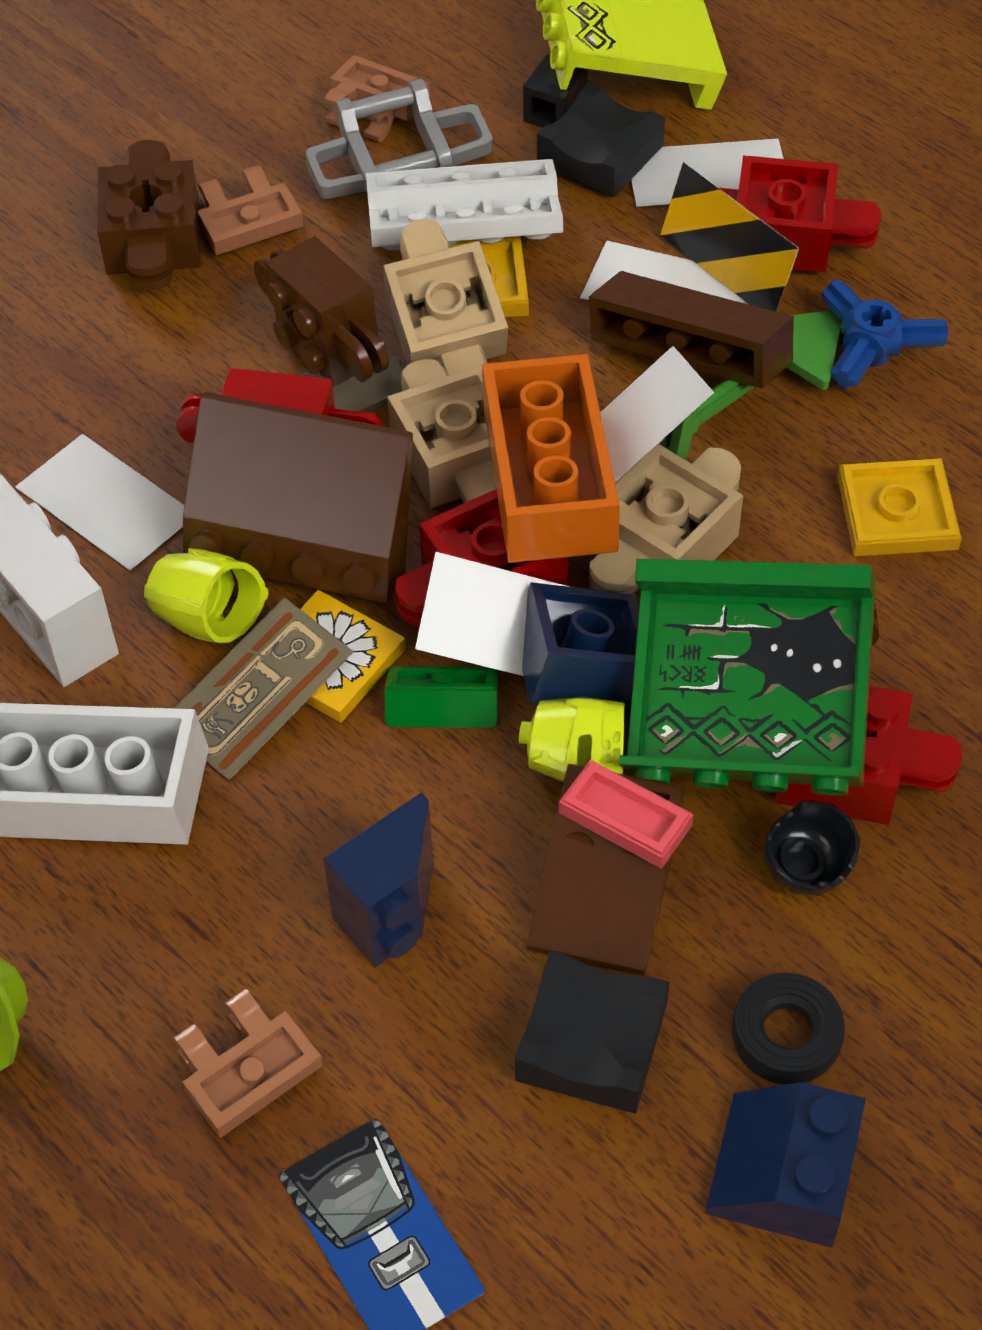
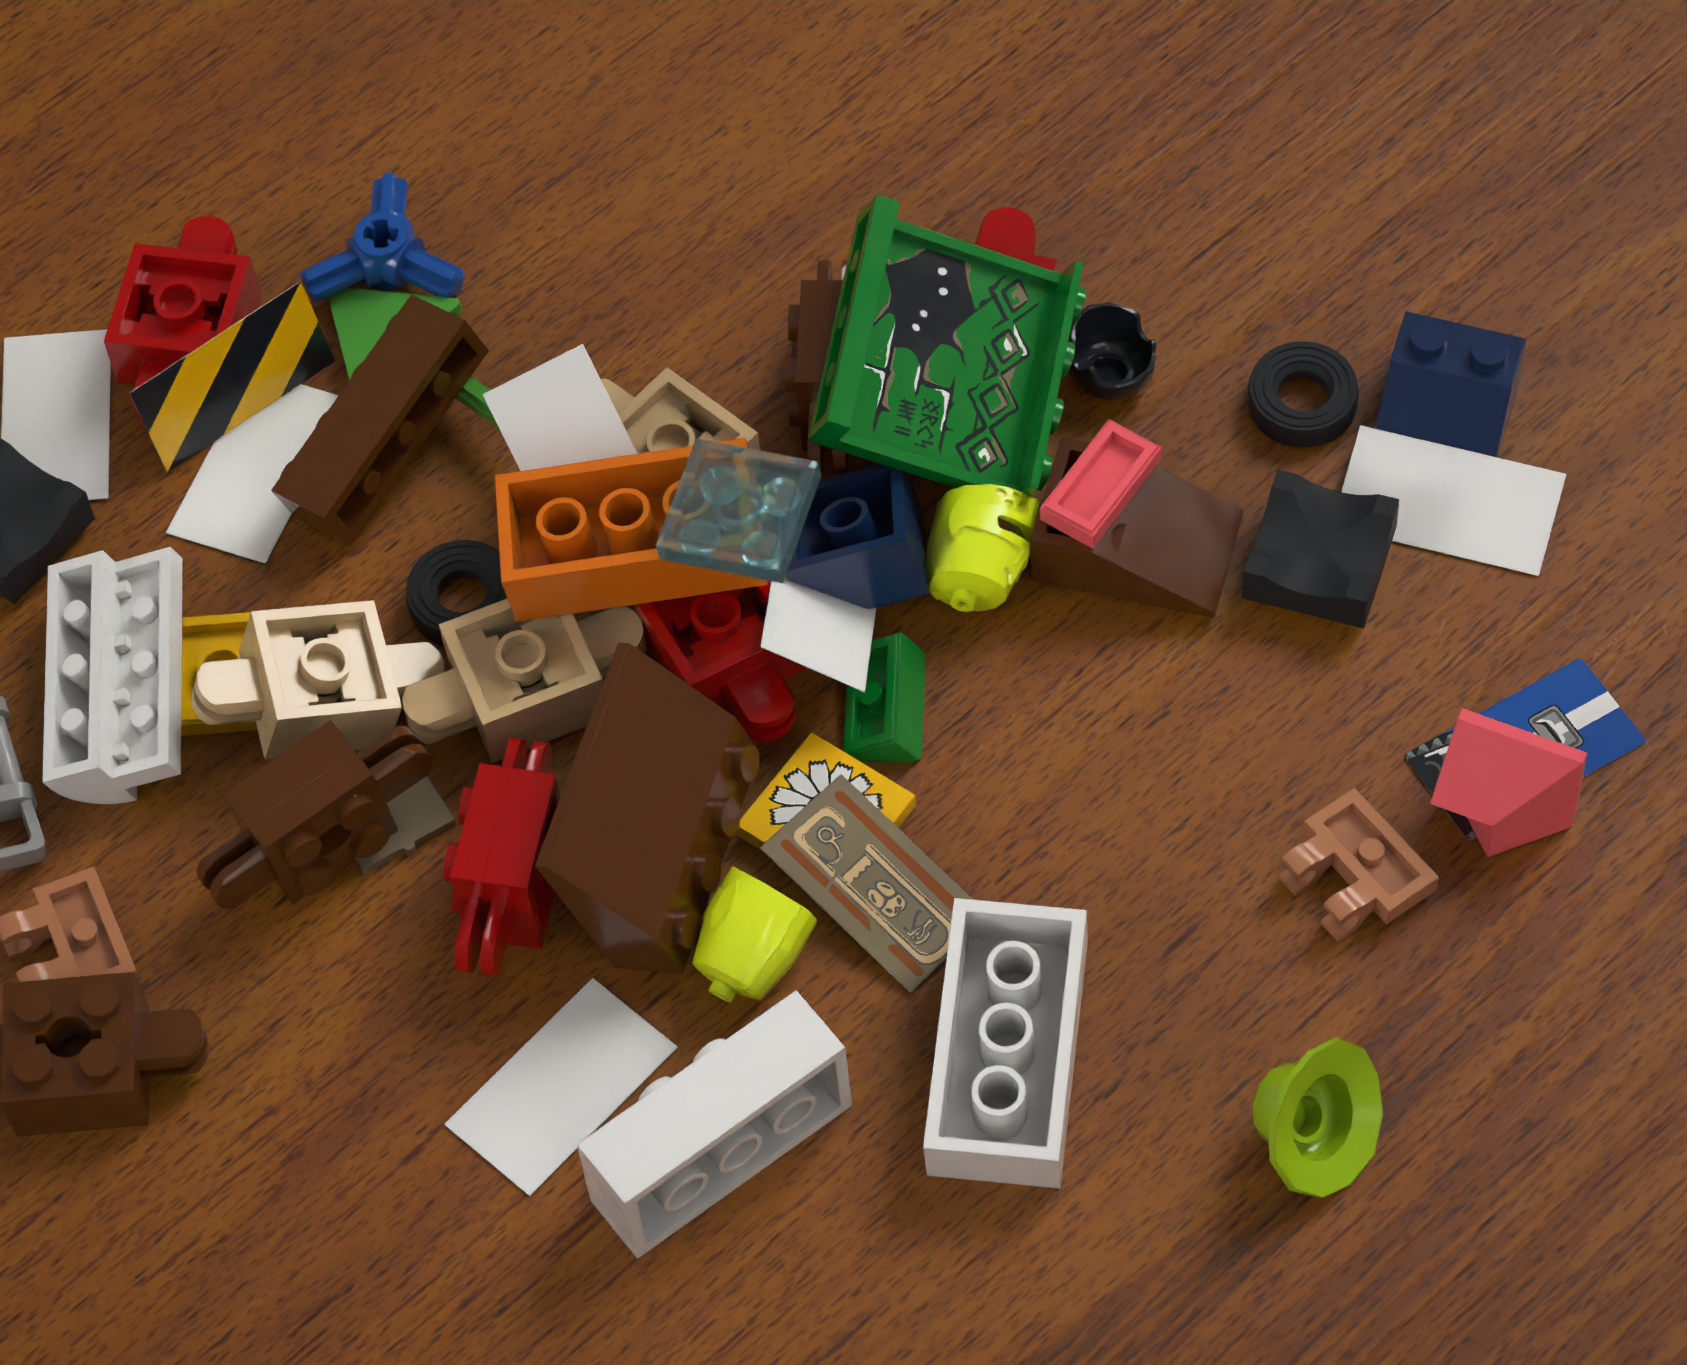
camera: 85 degrees left, 5 degrees up
(300, 1175) = (1508, 782): none -> coral slope
(383, 882) = (1163, 716): dark blue slope -> none
(528, 491) = (739, 510): none -> clear light blue plate
(668, 1169) = (1459, 498): none -> white sticker
(898, 507) = (640, 256): yellow tile -> none

